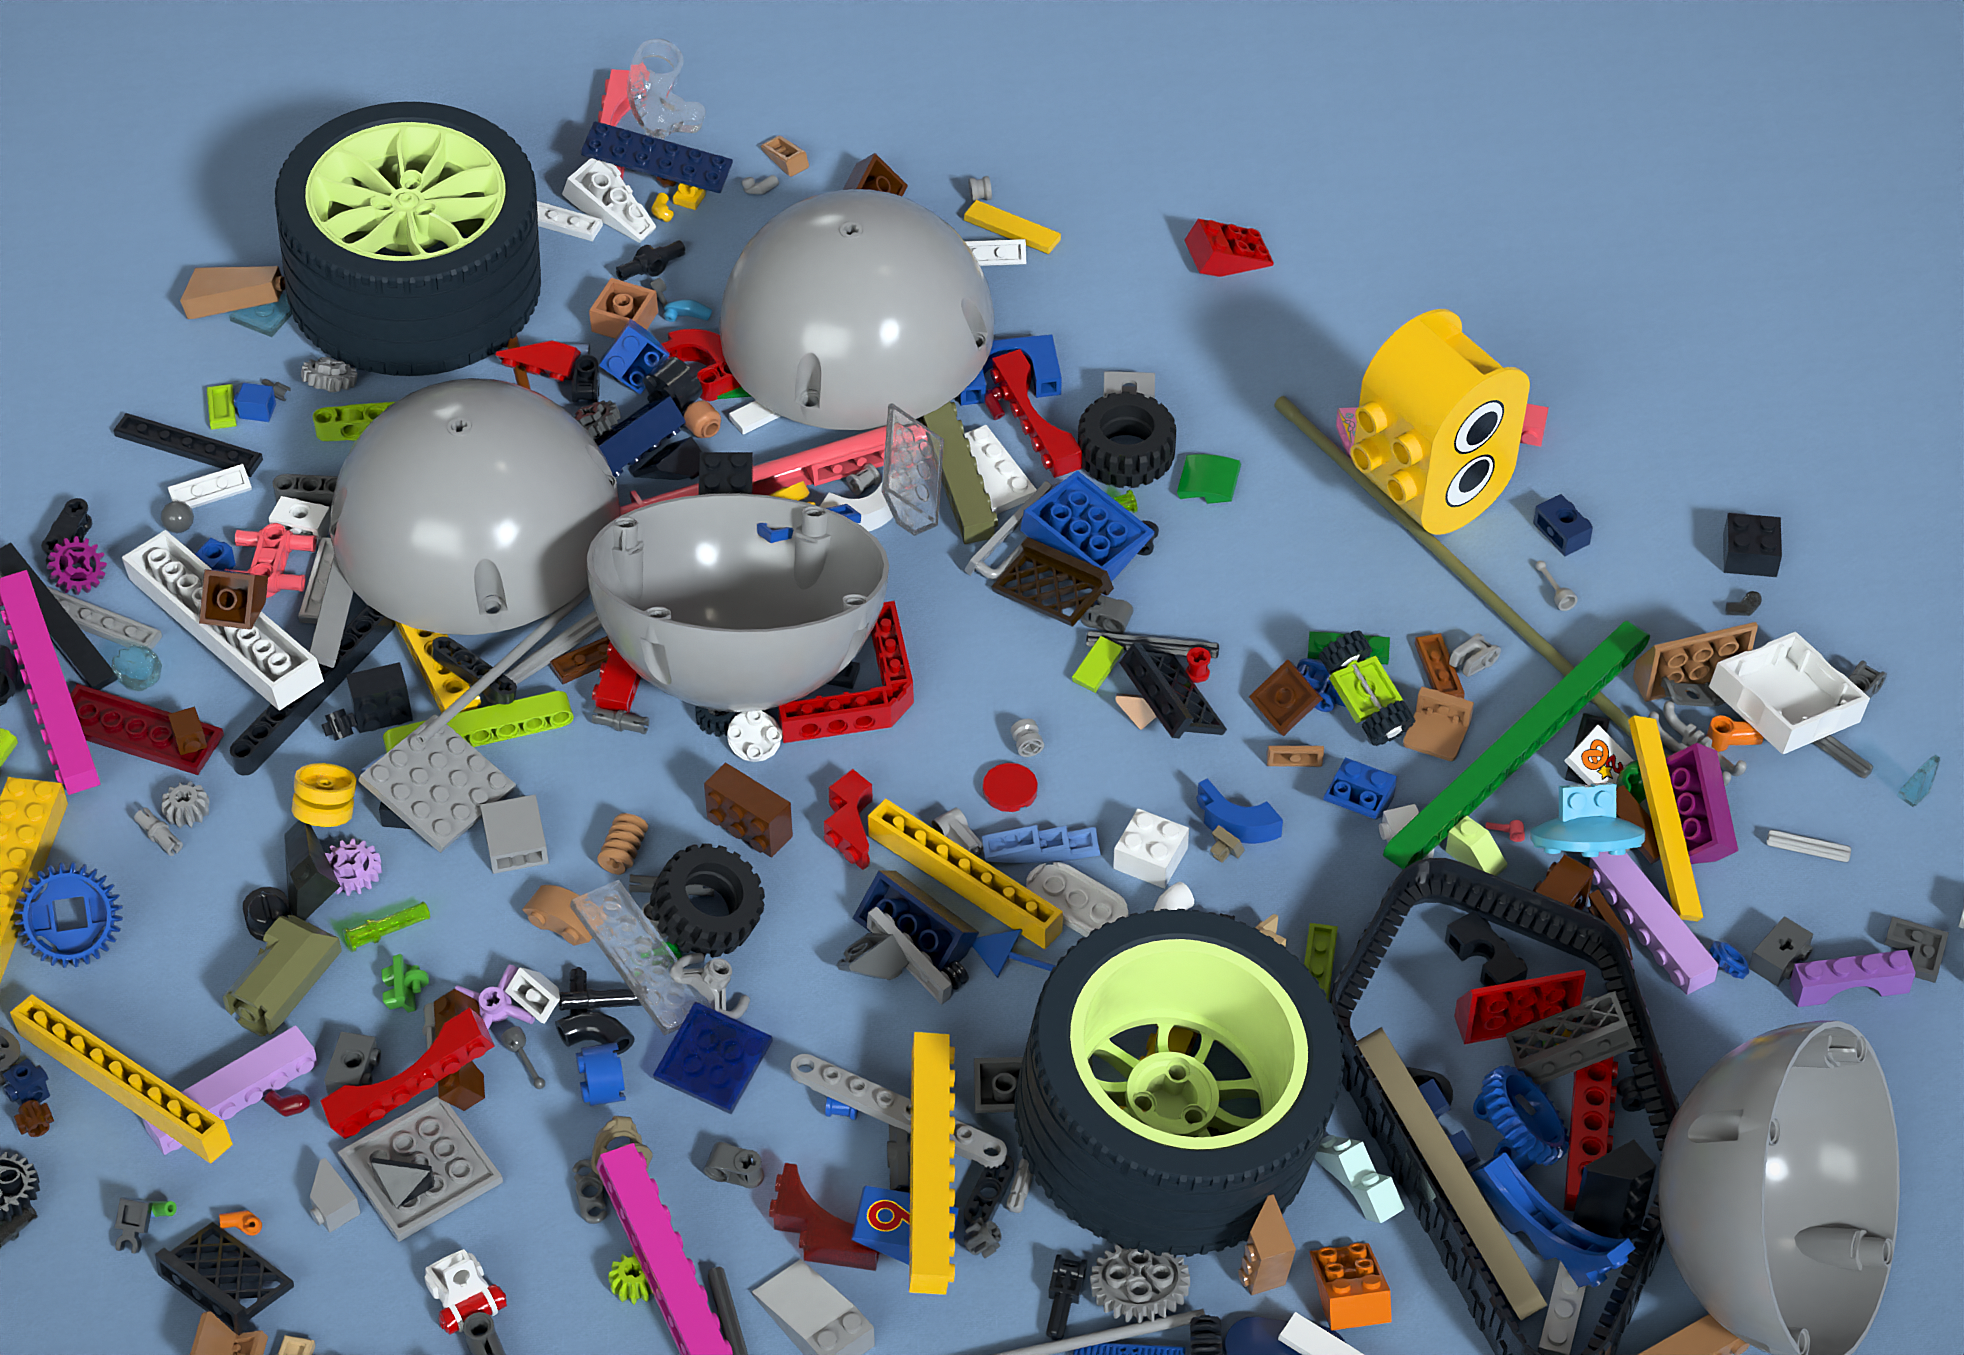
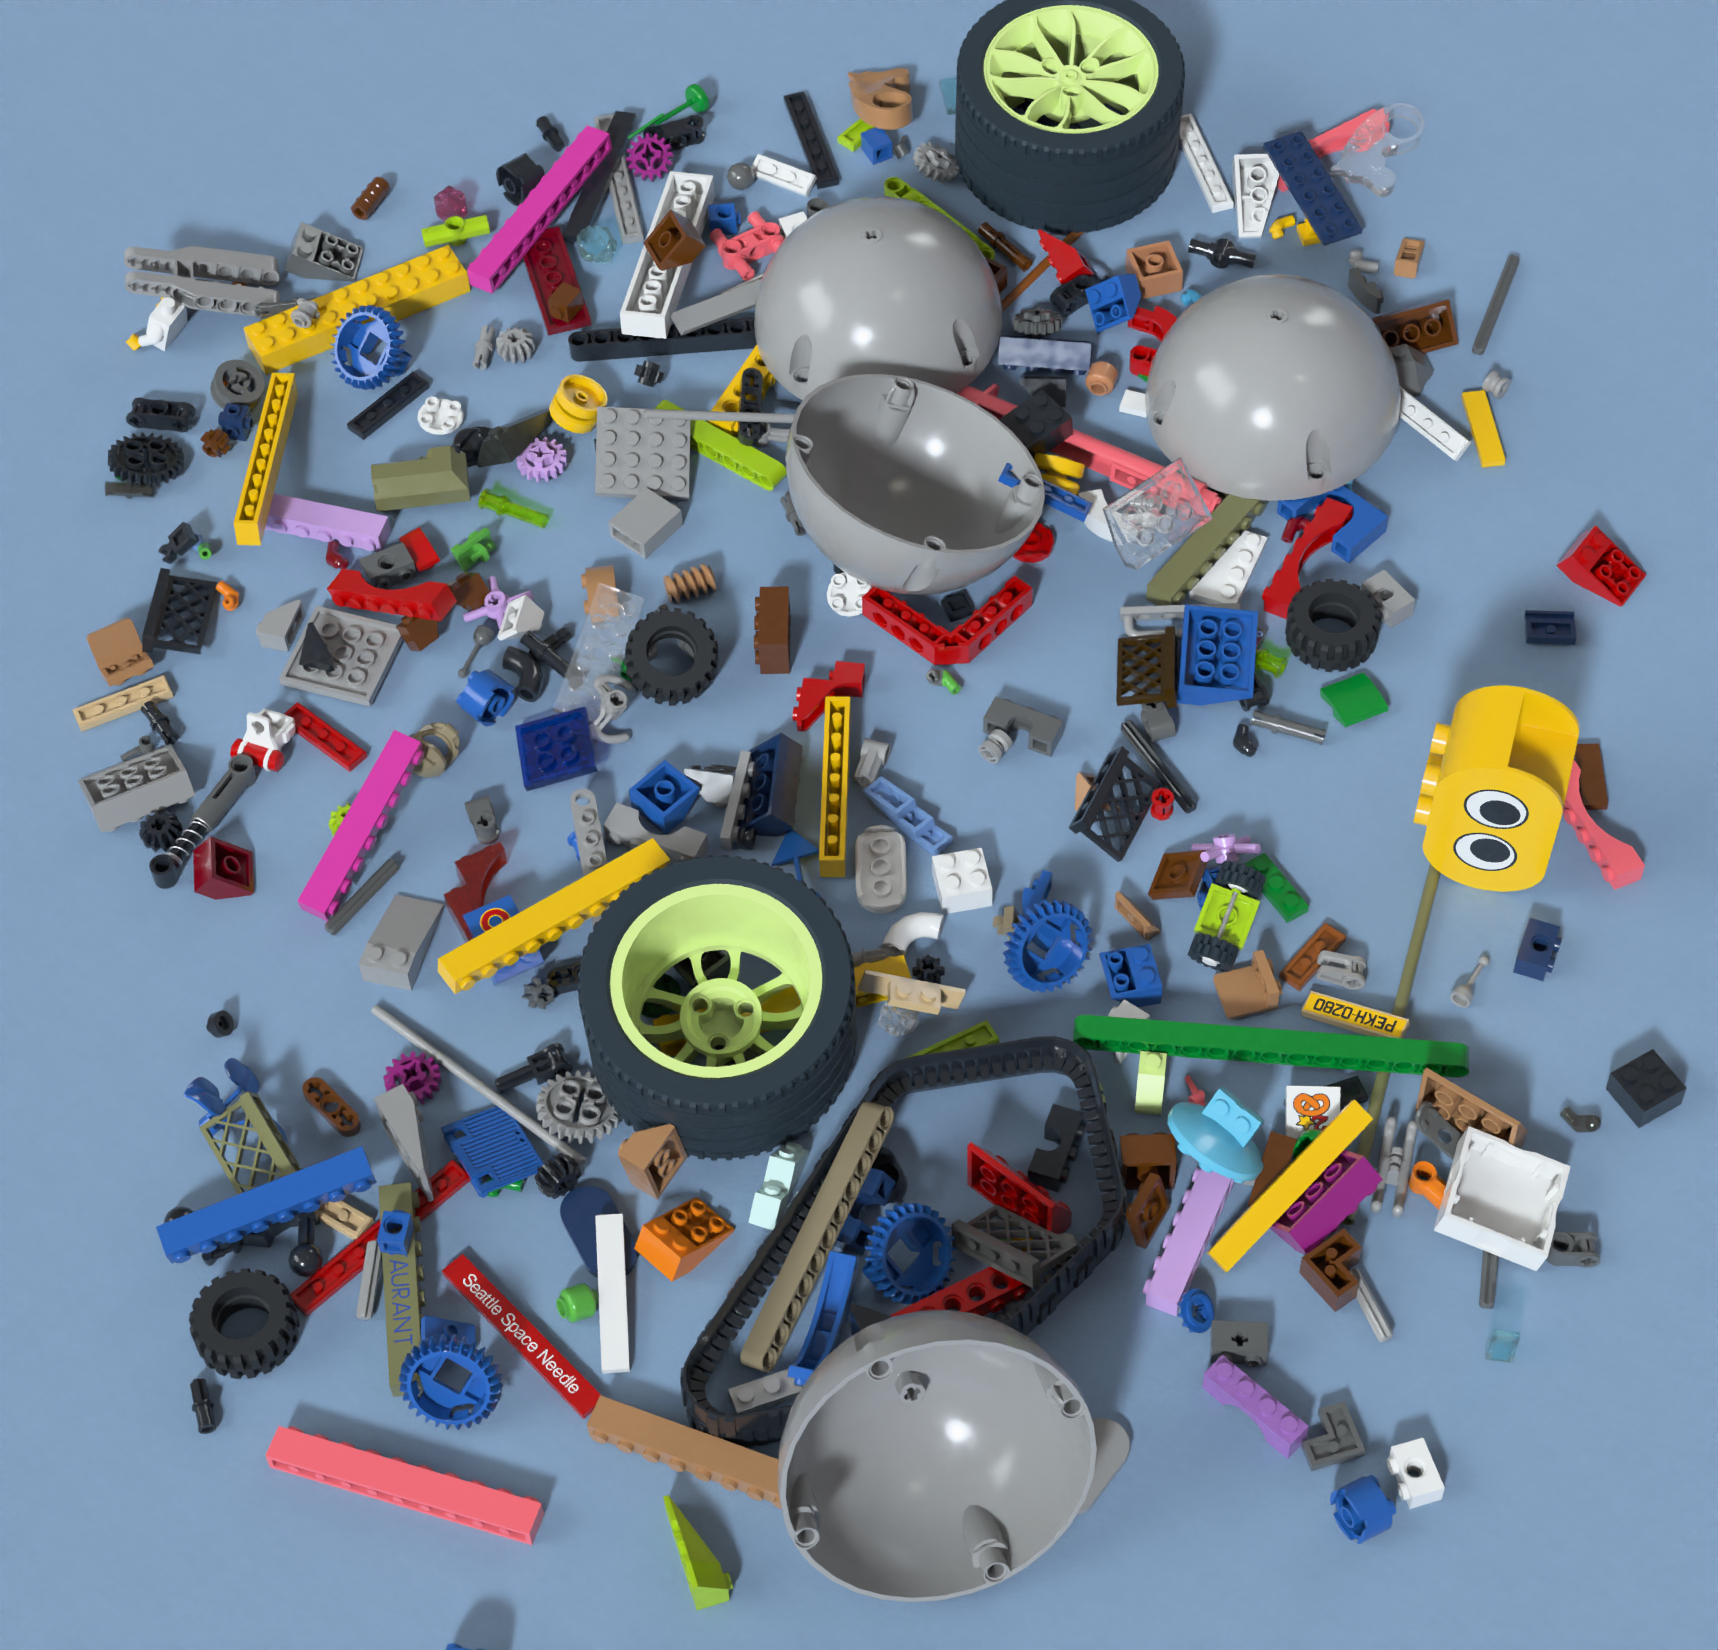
camera: 55 degrees right, 5 degrees up
(43, 490) = (695, 98): none -> green piece
(140, 951) = (388, 405): none -> black tile
(204, 915) = (440, 416): none -> white dish
(210, 367) = (882, 98): none -> medium nougat animal
(231, 289) = (940, 56): medium nougat slope -> none
(357, 1023) = (420, 549): none -> red slope
(379, 697) = (684, 376): black brick -> none
(505, 1240) = (326, 738): none -> red tile
(659, 286) = (1201, 275): dark grey hand -> none
(673, 380) = (1109, 340): black brick -> none
(780, 199) = (1365, 292): none -> dark grey slope
(854, 1005) = (664, 796): none -> blue slope
(870, 1057) = (625, 829): none -> light grey arch
(894, 138) = (1495, 305): none -> dark grey axle
(915, 729) = (943, 678): none -> arm
(1010, 787) = (945, 766): red tile -> none
(1041, 695) = (1043, 729): none -> dark grey arch
(1098, 664) = (1099, 745): lime tile -> none
(1181, 576) = (1242, 743): none -> black arm
(1187, 540) = (1287, 727): none -> dark grey pin
(1256, 316) = (1550, 627): none -> dark blue plate
(1287, 826) = (1062, 955): none -> blue piece
(1290, 648) = (1226, 848): none -> lavender bar
(1528, 677) = (1353, 1016): none -> tile
(1765, 848) = (1328, 1269): none -> reddish brown brick

